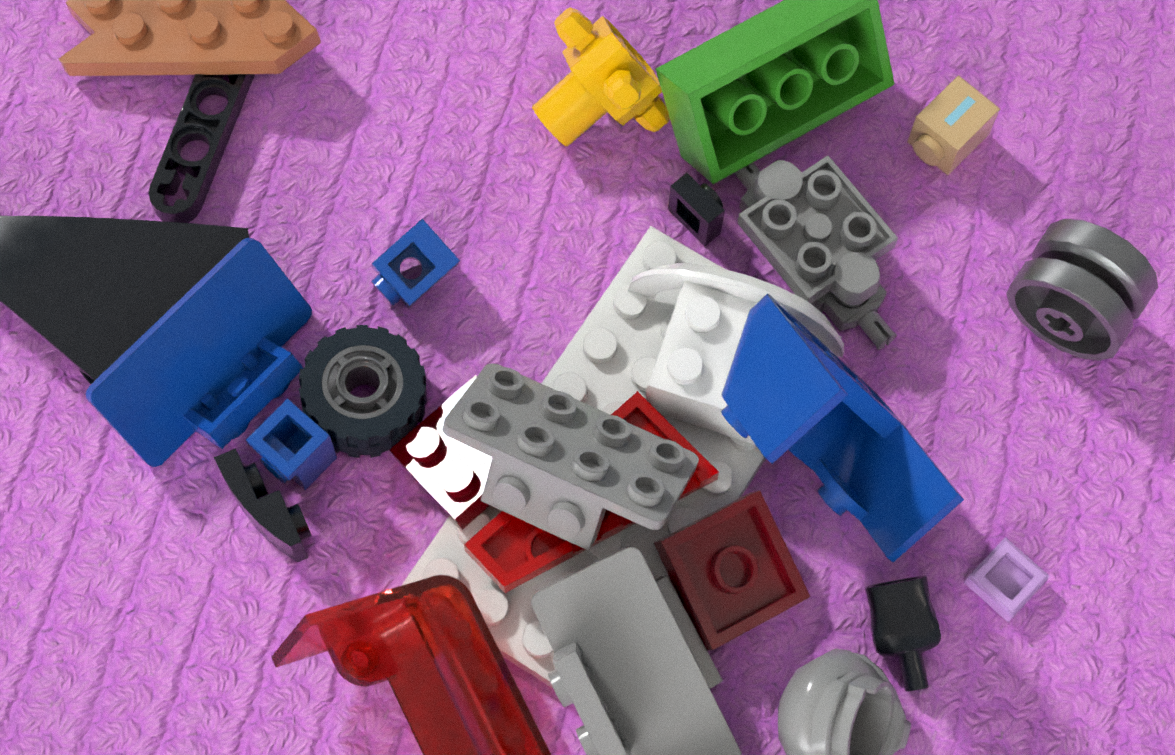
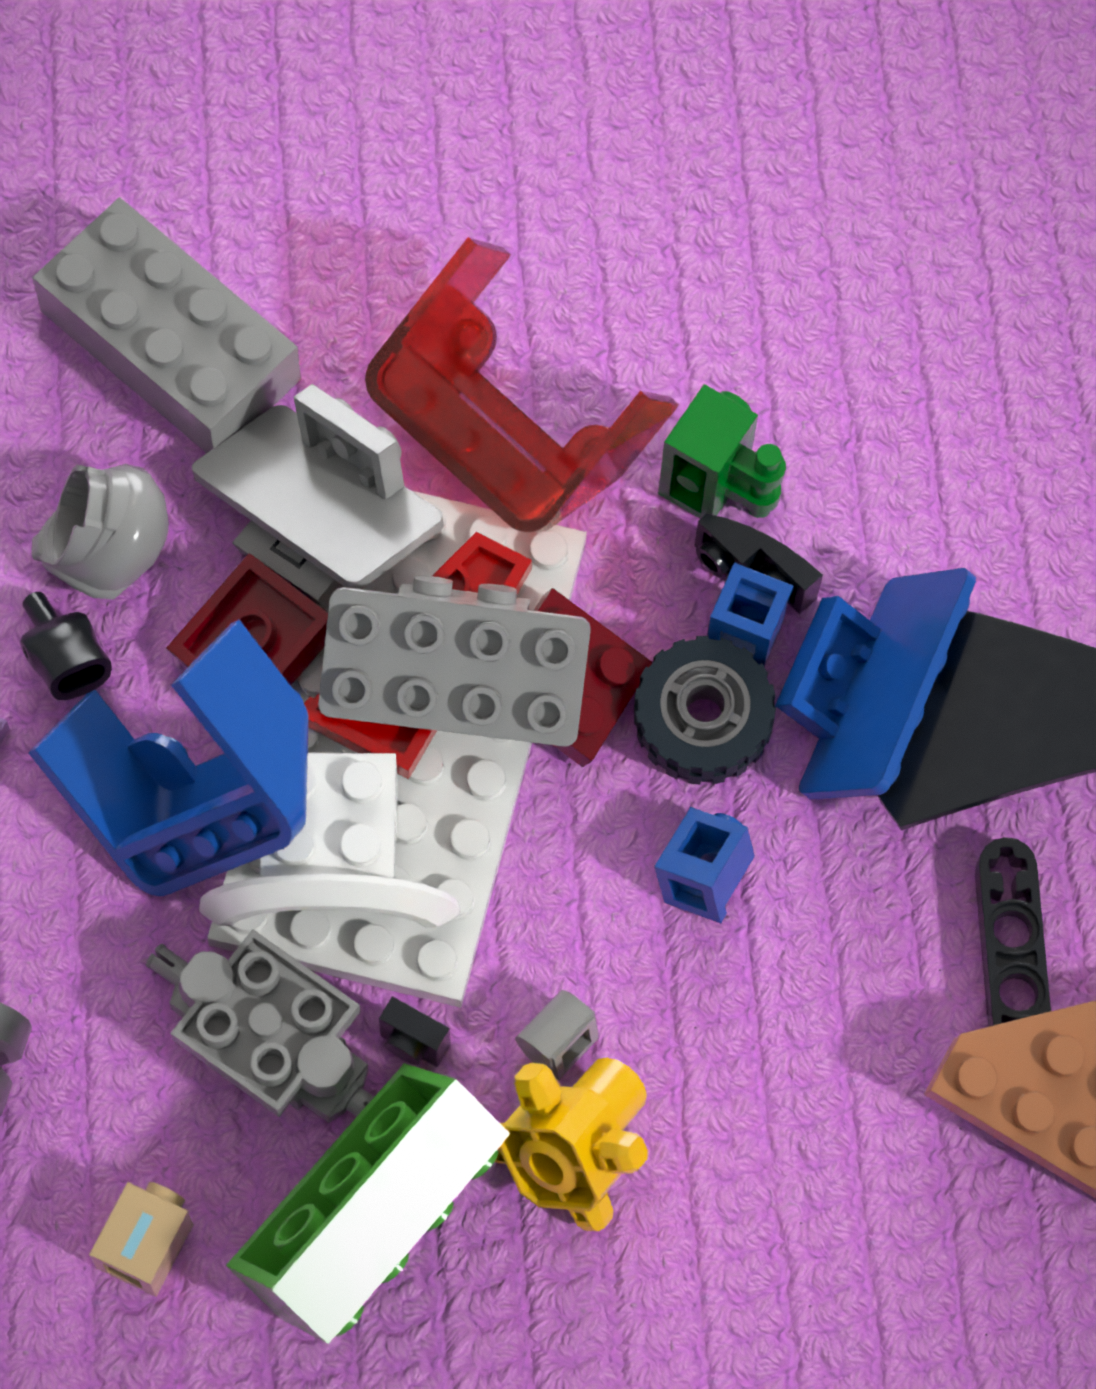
camera: 160 degrees right, 0 degrees up
(256, 593) = (713, 458): none -> green brick
(582, 174) = (559, 1033): none -> light grey brick

